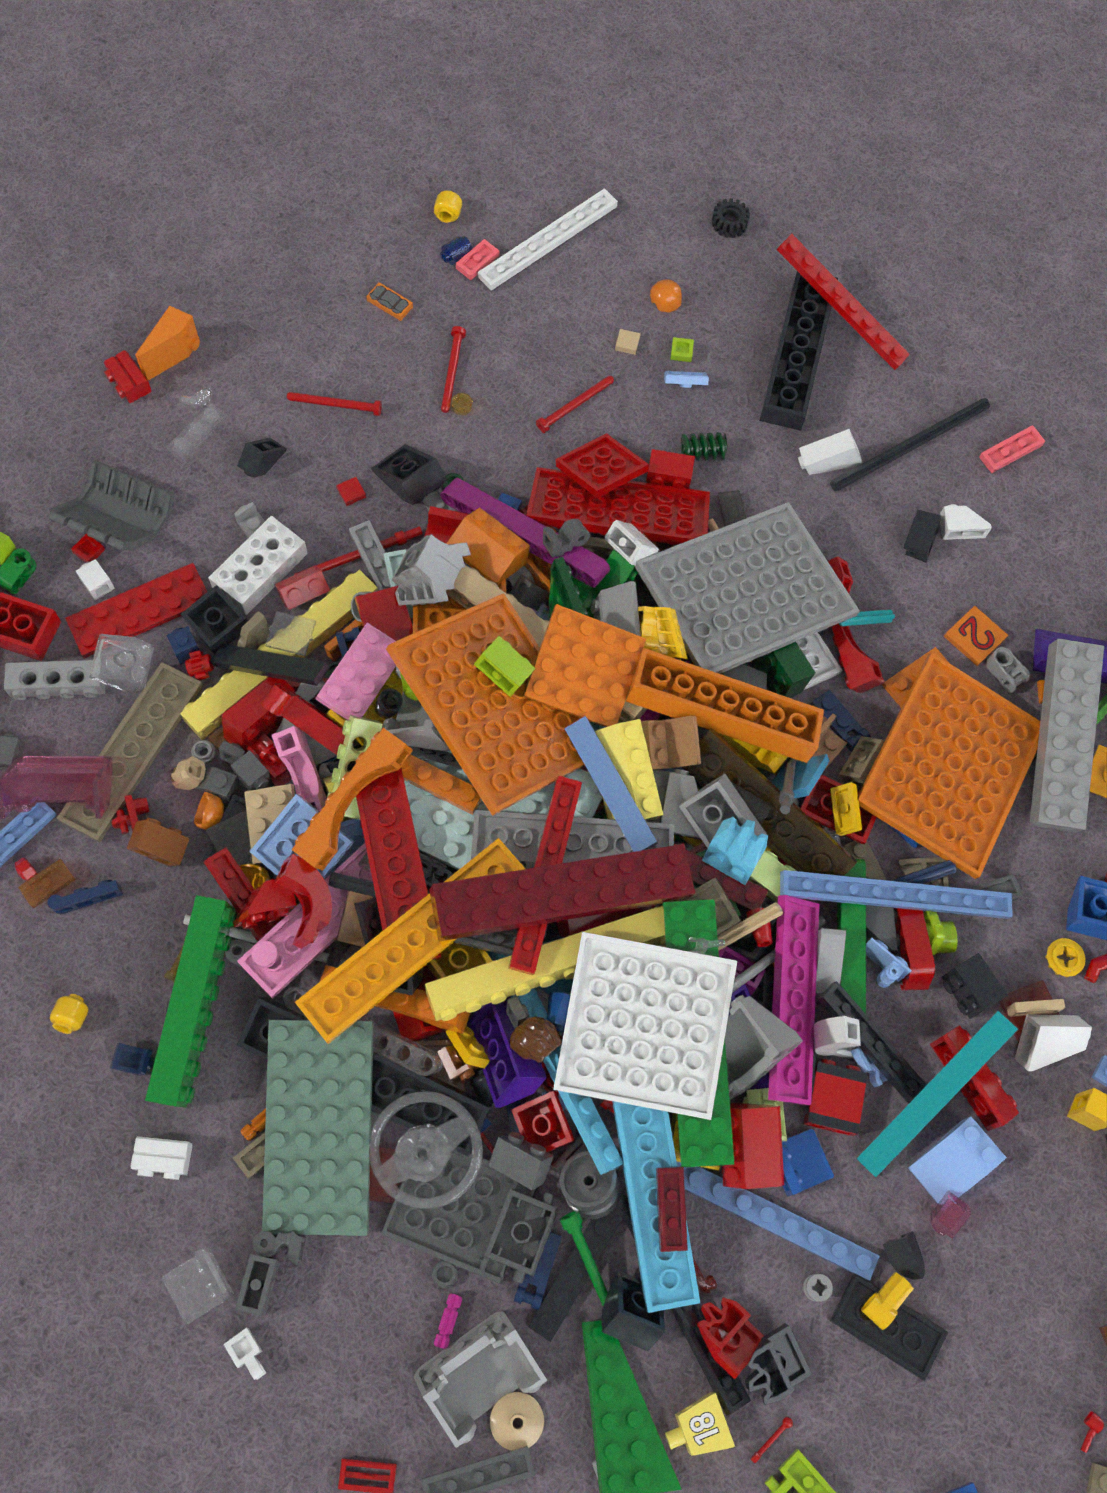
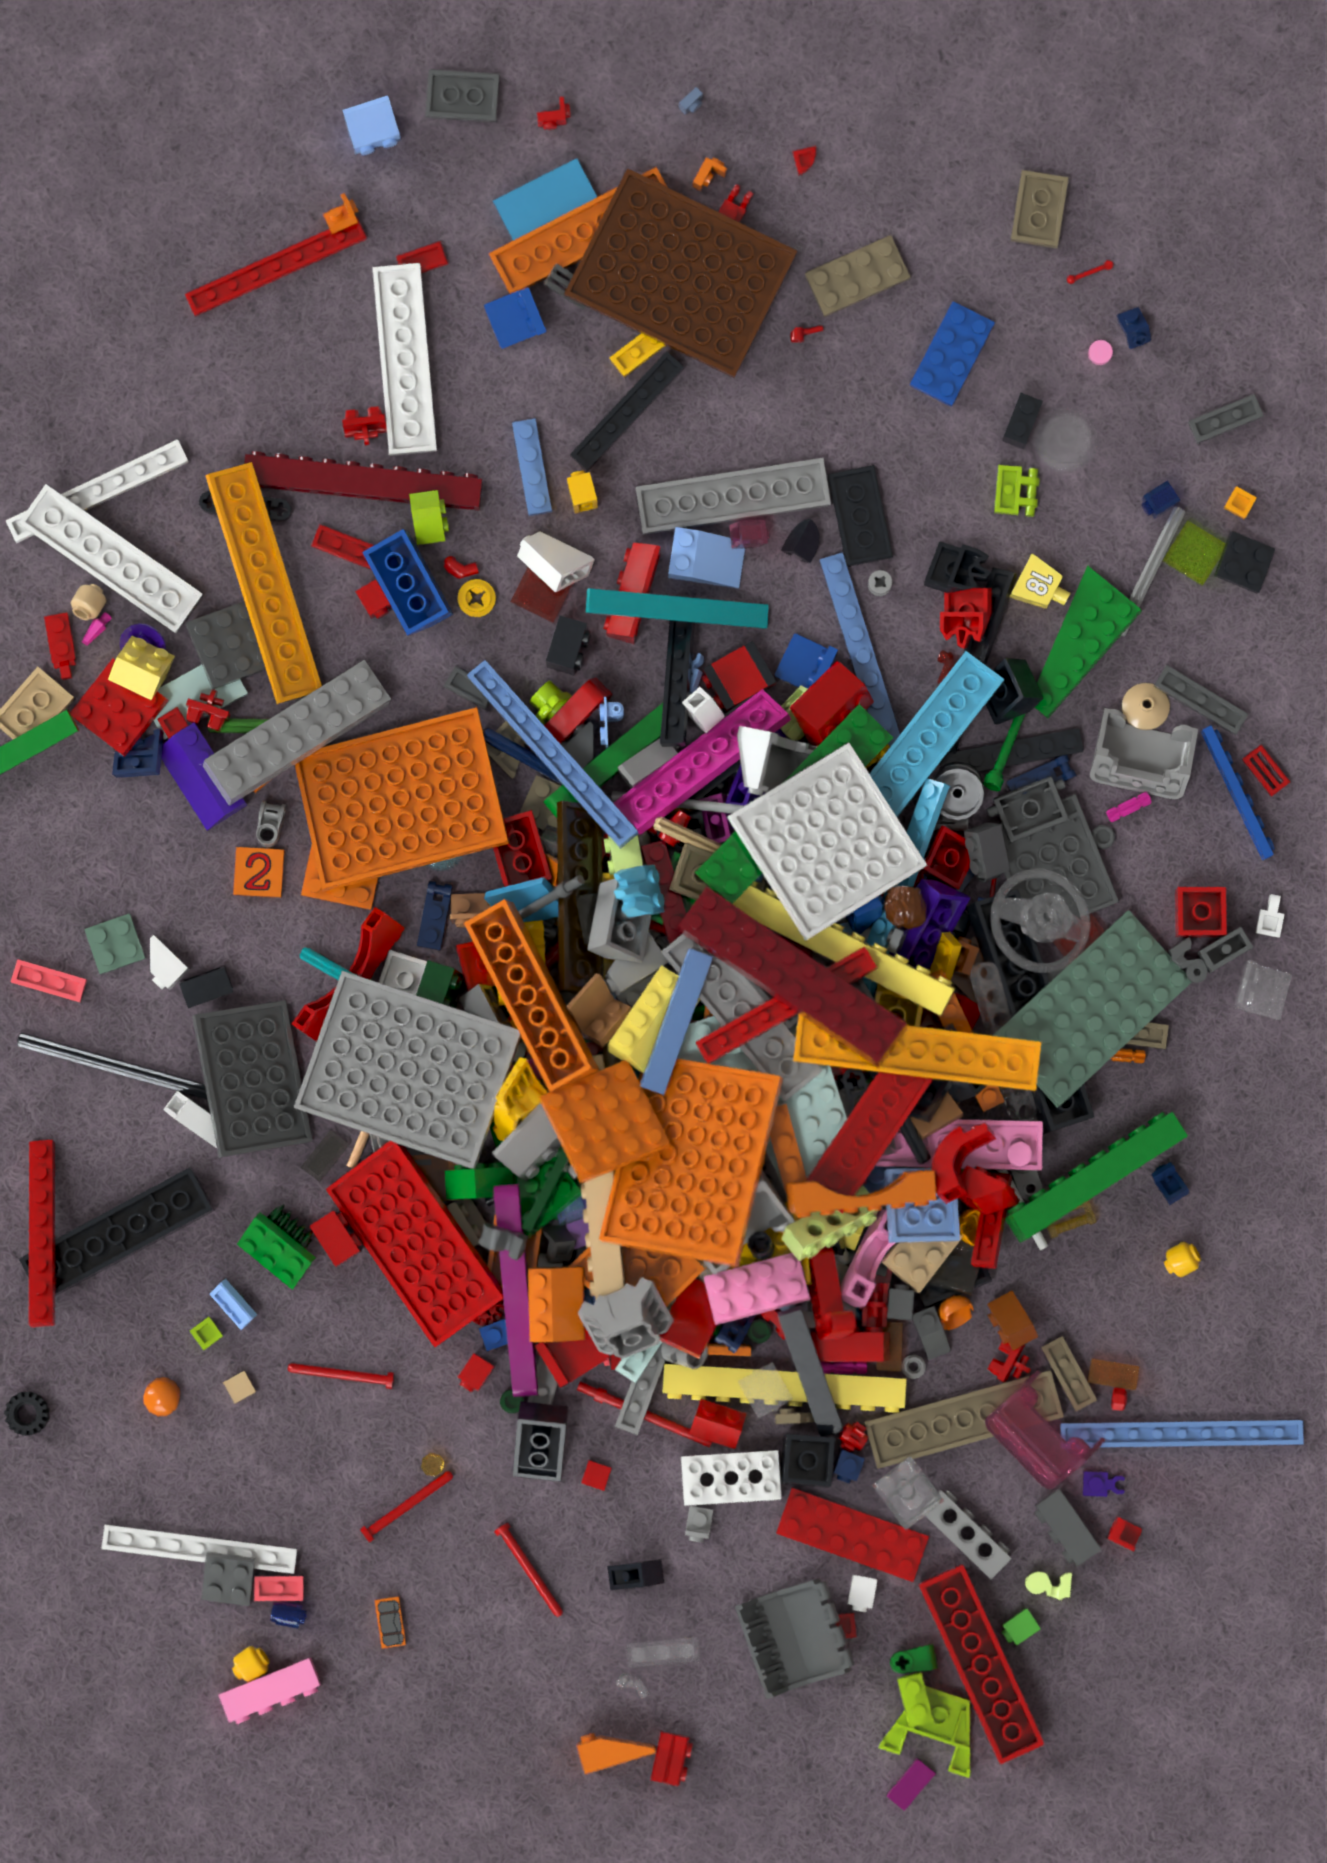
camera: 125 degrees left, 15 degrees up
(82, 852) = (1068, 1373): none -> dark tan plate
(85, 897) = (1097, 1336): dark blue plate -> none
(161, 1156) = (1210, 1097): white brick -> none
(188, 773) = (942, 1354): tan rock -> none
(230, 752) = (897, 1334): dark grey plate -> none
(306, 1295) = (1200, 912): none -> red brick
(383, 1434) = (1234, 782): none -> blue plate
(419, 206) = (270, 1689): none -> bright pink brick
(494, 470) = (475, 1373): none -> red brick
(504, 666) = (662, 1175): lime brick -> none
(513, 236) = (228, 1578): none -> dark grey plate
(602, 465) = (388, 1292): red plate -> none
(629, 542) = (457, 1189): white brick -> none
(671, 1209) = (926, 720): dark red tile -> none
(697, 425) = (276, 1250): none -> green plate
(702, 944) = (740, 849): clear hand -> none
(787, 1423) = (984, 532): red hinge -> none
(836, 501) = (251, 1078): none -> dark grey plate
(846, 809) = (521, 844): yellow plate -> none
(861, 760) = (460, 869): dark tan bracket -> none
(883, 1305) = (854, 530): yellow piece -> none
(991, 1235) = (733, 496): none -> light grey plate
(1003, 508) = (115, 944): none -> sand green plate
(1035, 1007) = (543, 589): tan tile -> none

